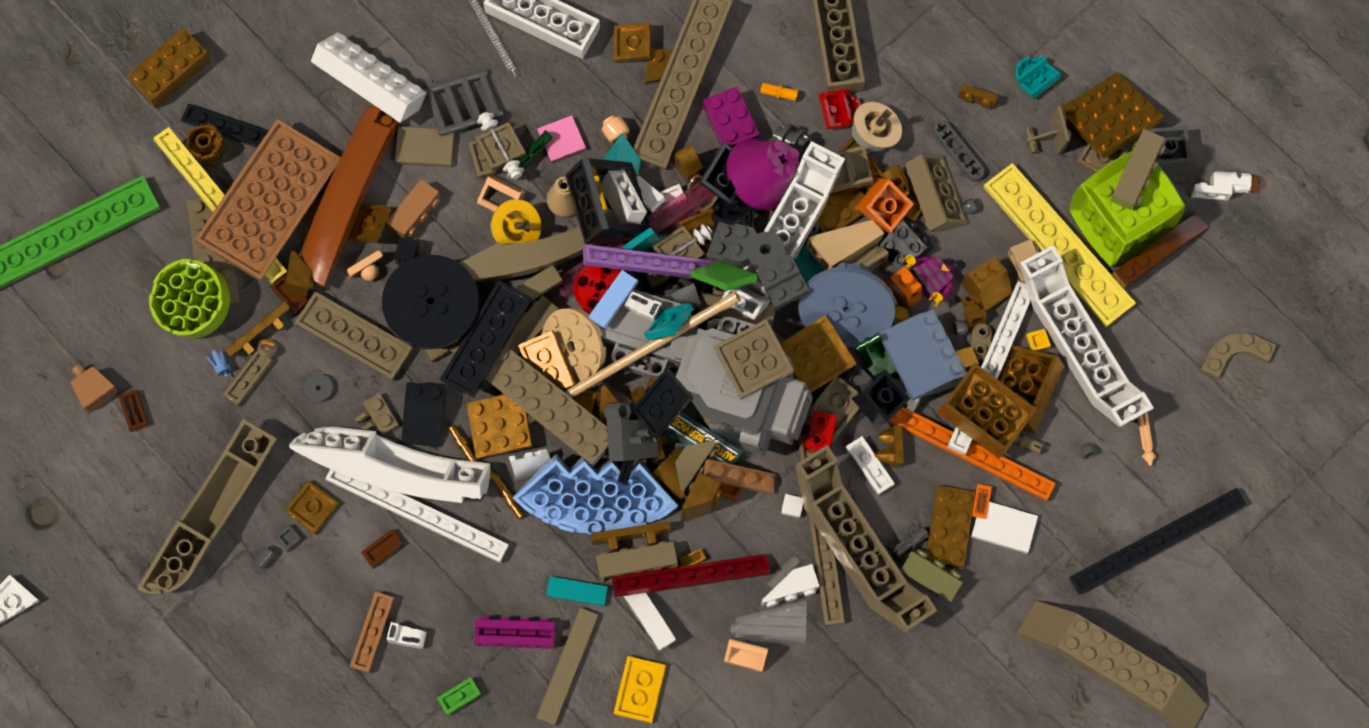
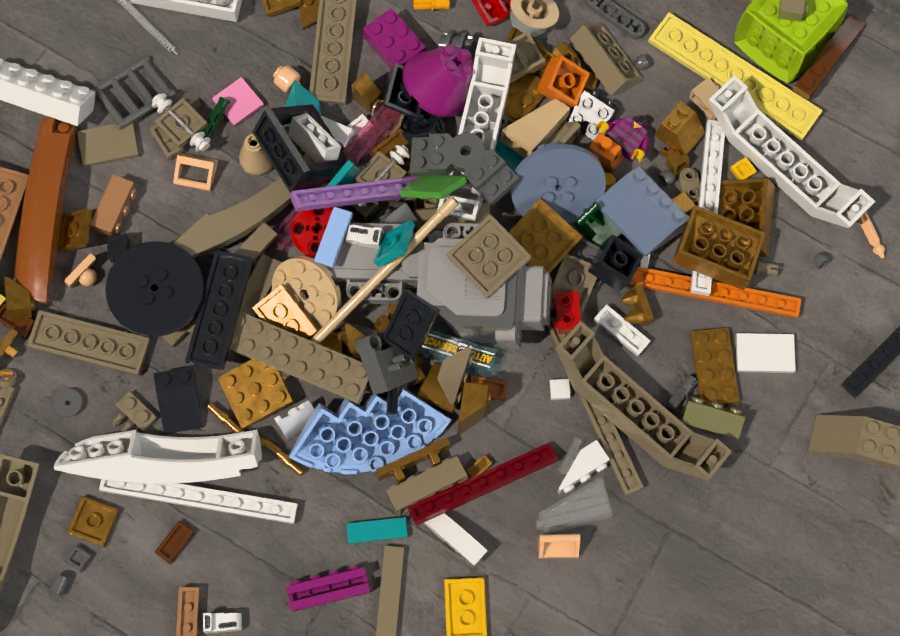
camera: 15 degrees left, 0 degrees up
(515, 223) = (216, 191): yellow piece -> none
(740, 476) = (503, 375): medium nougat plate -> none
(981, 501) = (737, 335): orange sticker -> none

